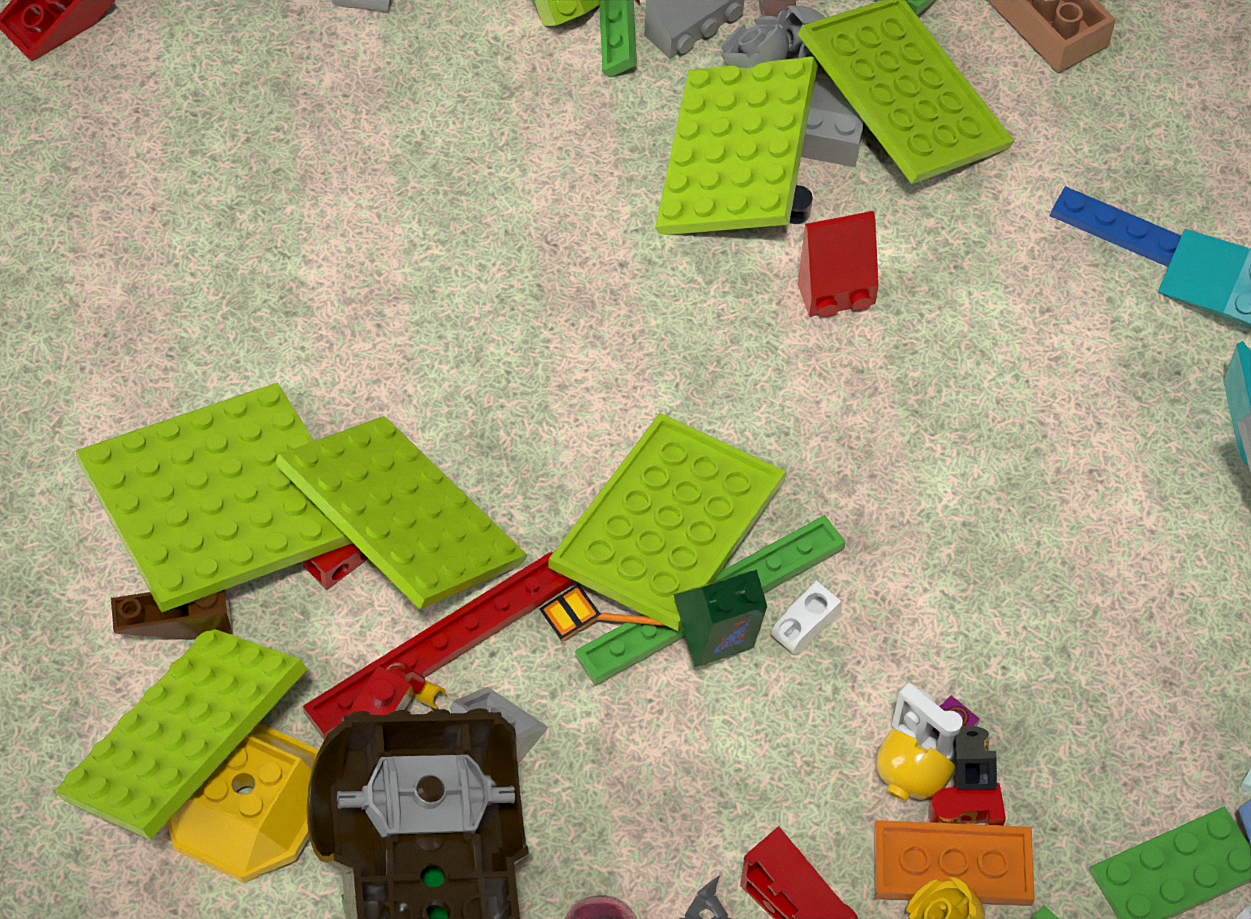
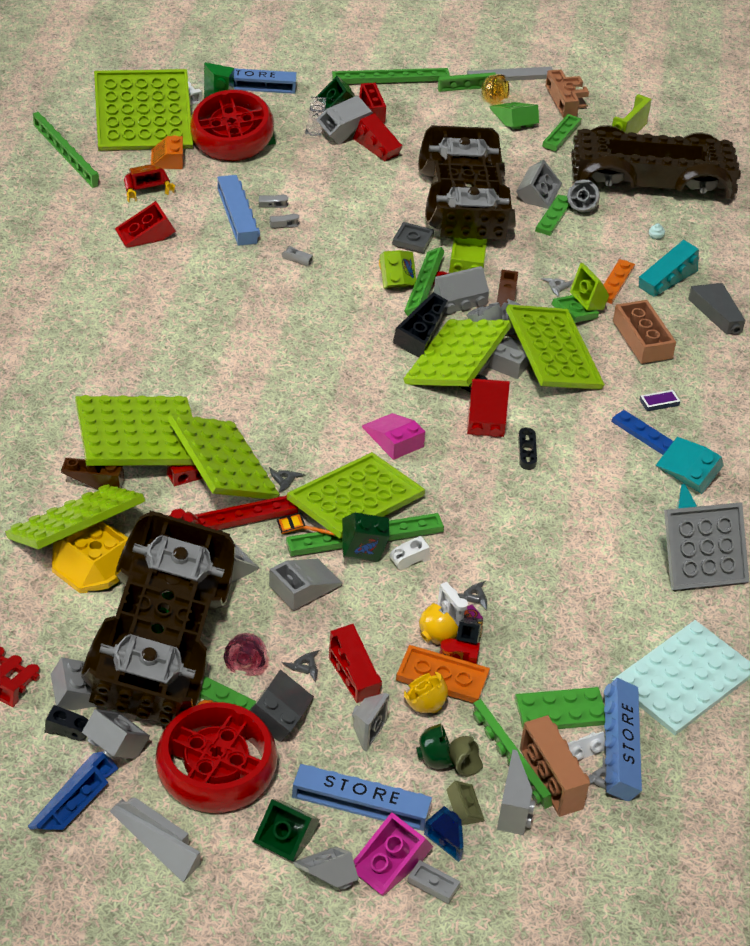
camera: 15 degrees right, 15 degrees down
(526, 523) = (284, 483): none -> dark grey piece
(641, 738) = (301, 581): none -> light grey slope
(648, 110) = (420, 326): none -> black wedge
(685, 357) = (396, 434): none -> dark pink slope
(932, 308) = (531, 443): none -> black beam
(945, 657) = (480, 597): none -> dark grey piece
(1118, 146) = (659, 400): none -> tile

